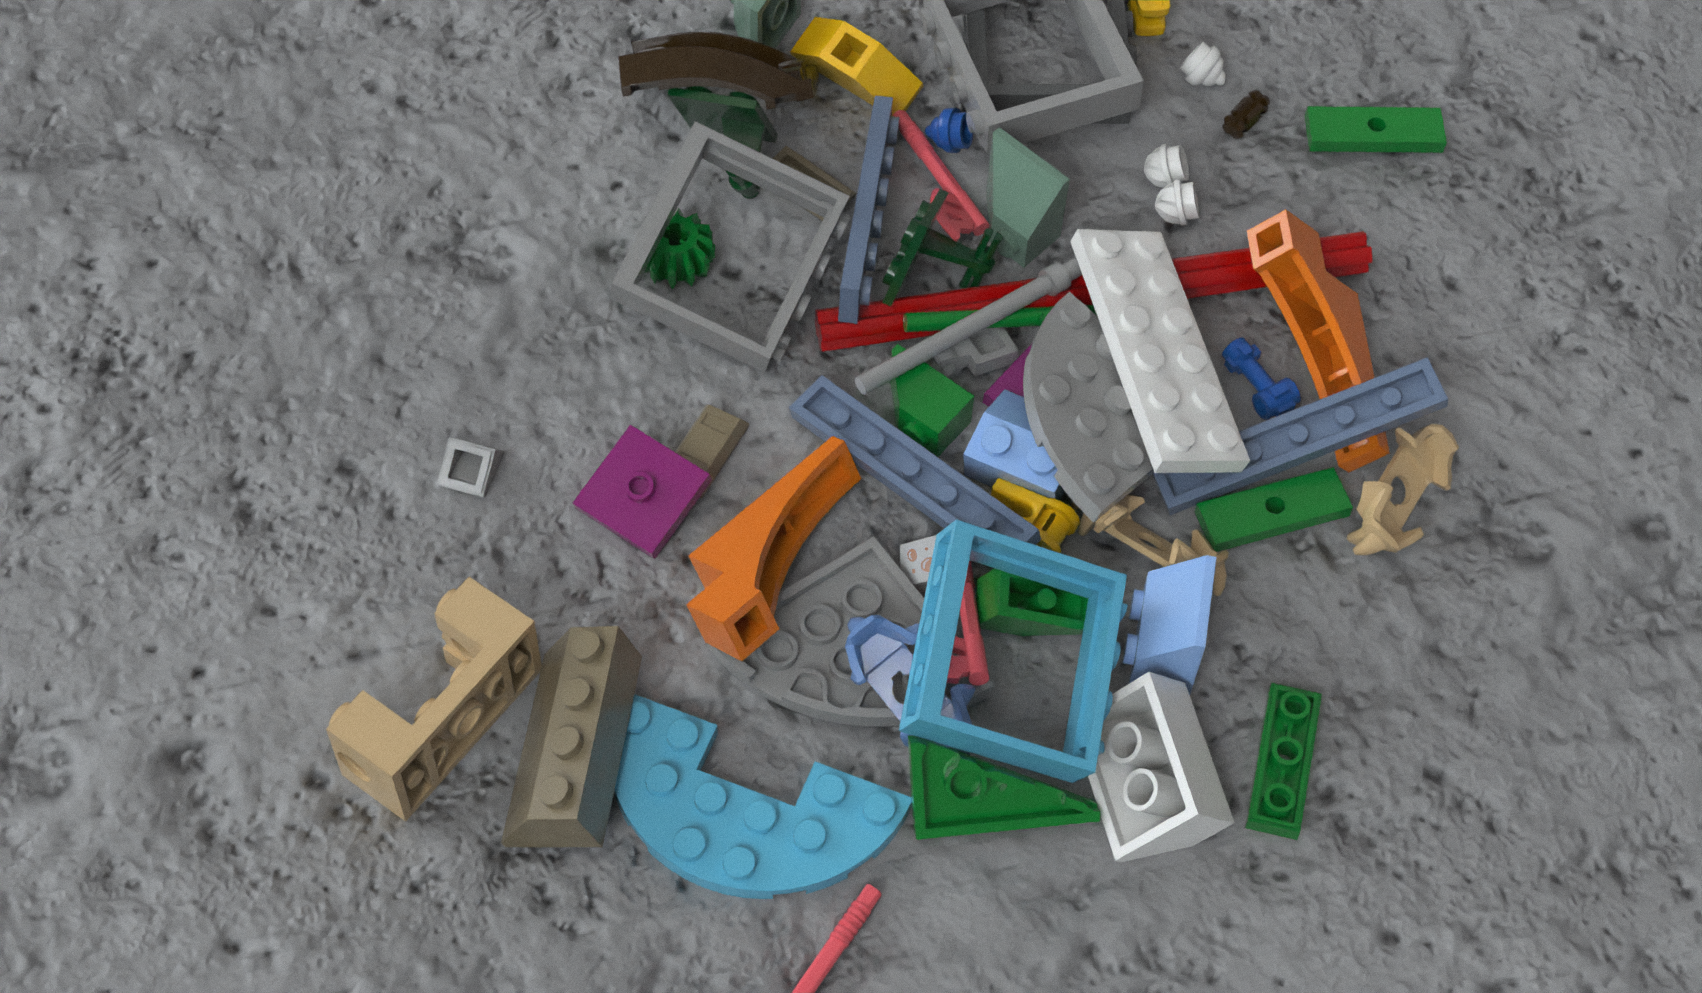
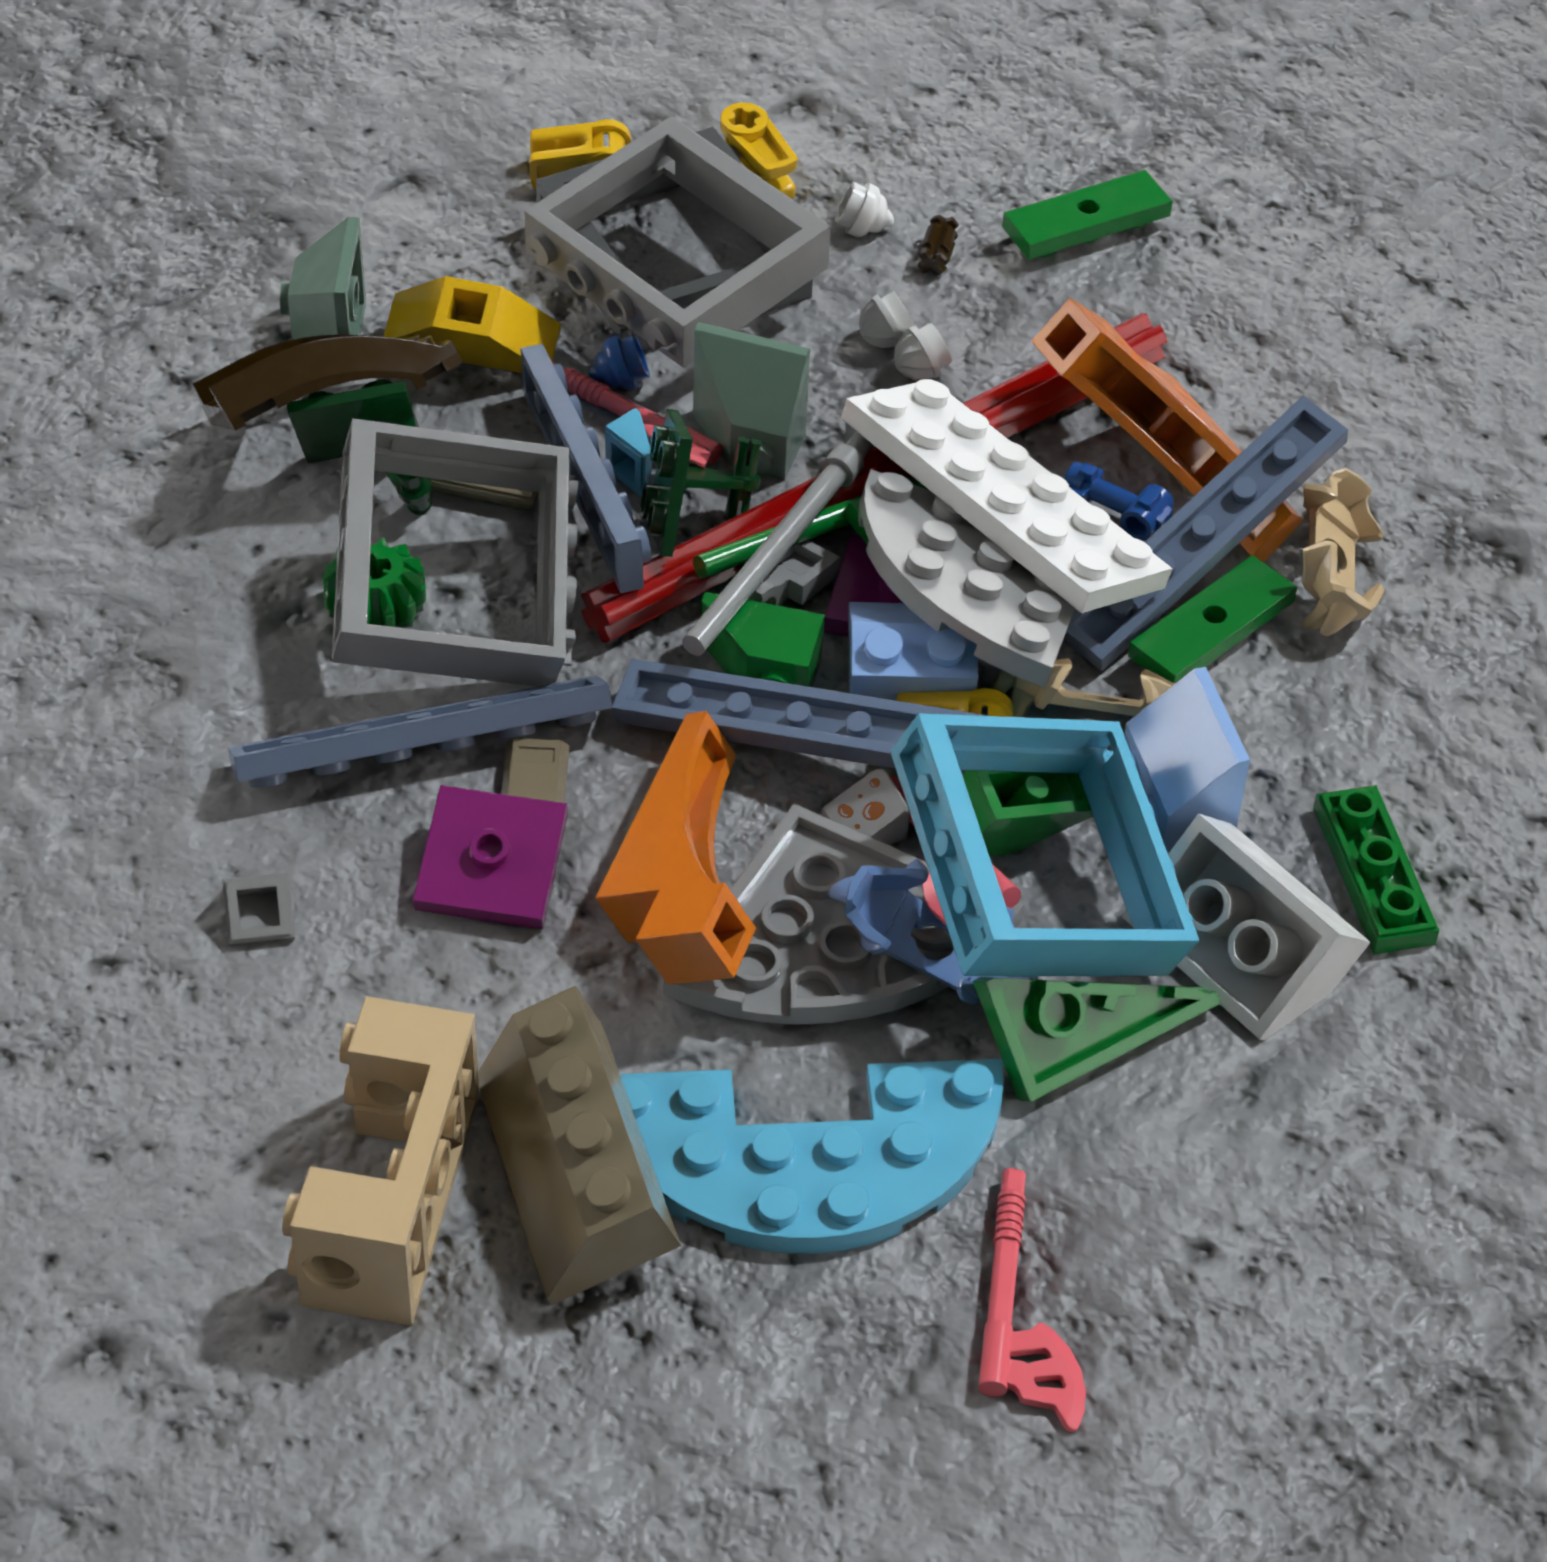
camera: 25 degrees left, 10 degrees down
(631, 370) = (394, 736): none -> sand blue plate
(911, 195) = (629, 450): none -> medium azure slope

